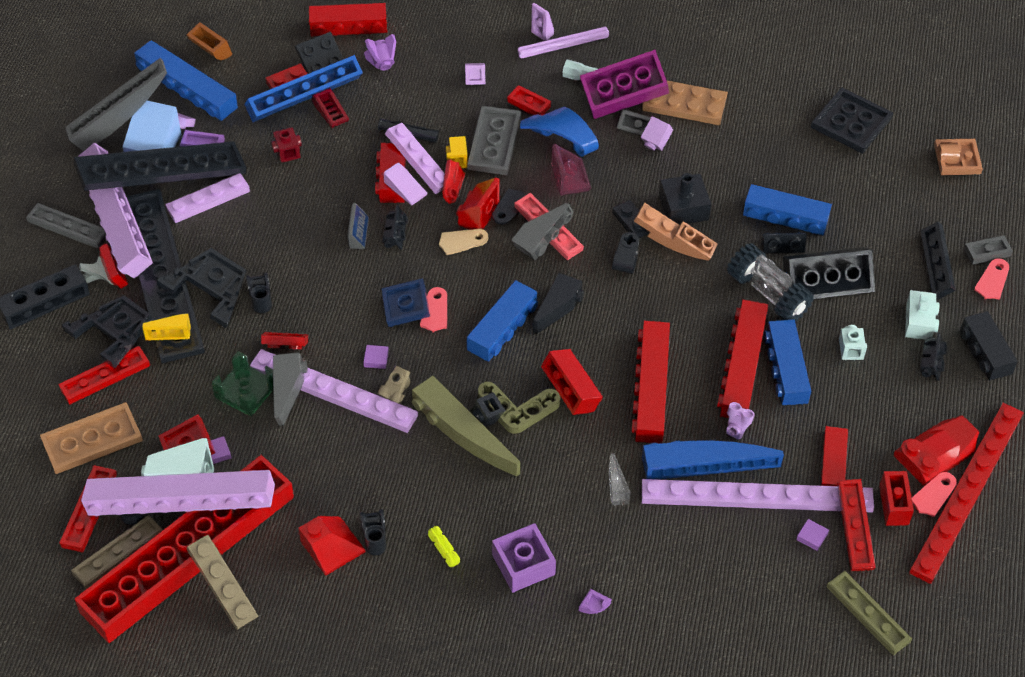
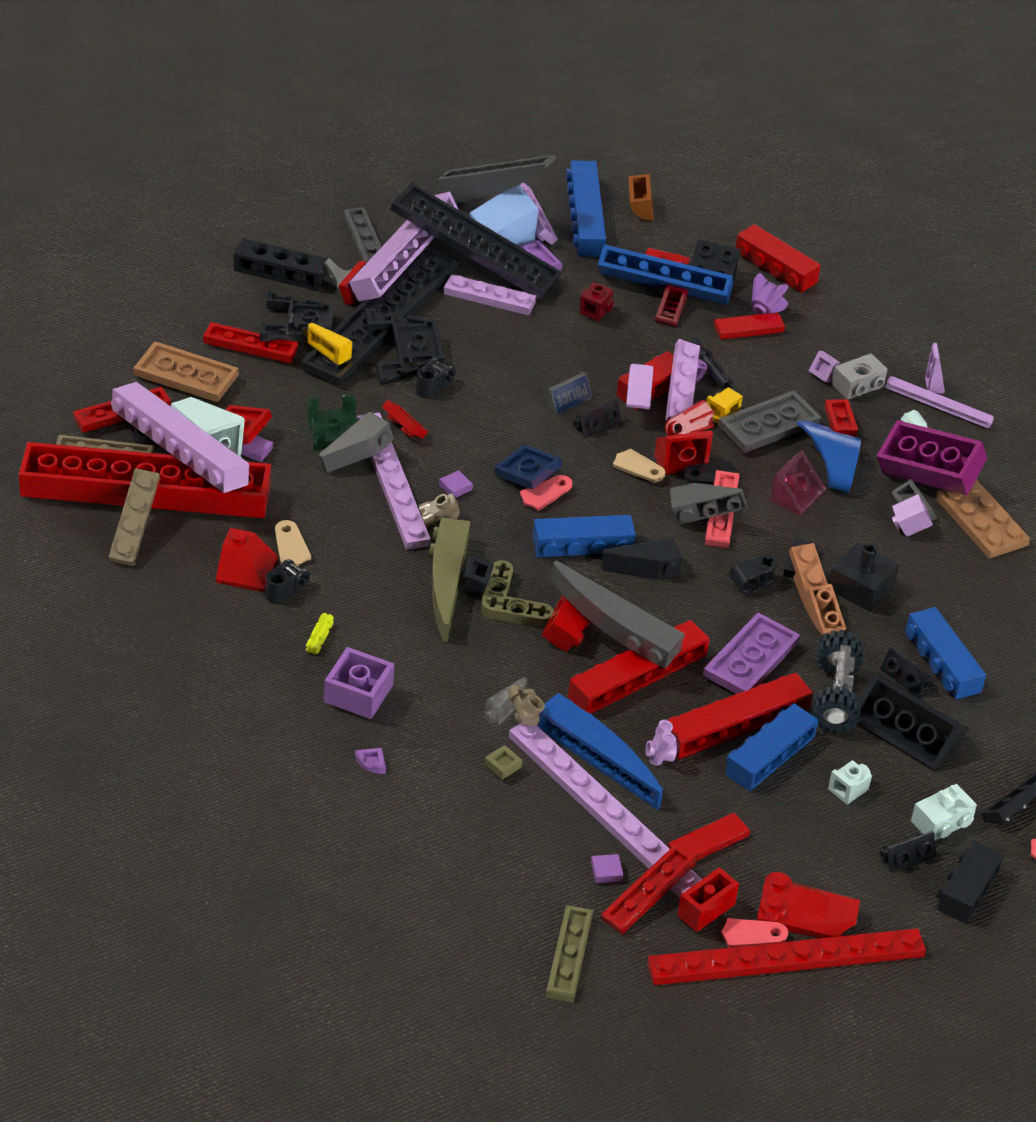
camera: 45 degrees right, 10 degrees down
(337, 500) = (291, 543): none -> tan piece
(392, 82) = (749, 325): none -> red tile
(502, 63) = (859, 376): none -> light grey brick
(615, 359) = (618, 617): none -> dark grey slope
(645, 473) = (526, 704): none -> dark tan plate
(669, 524) = (503, 762): none -> olive plate
(696, 311) = (751, 654): none -> medium lavender plate

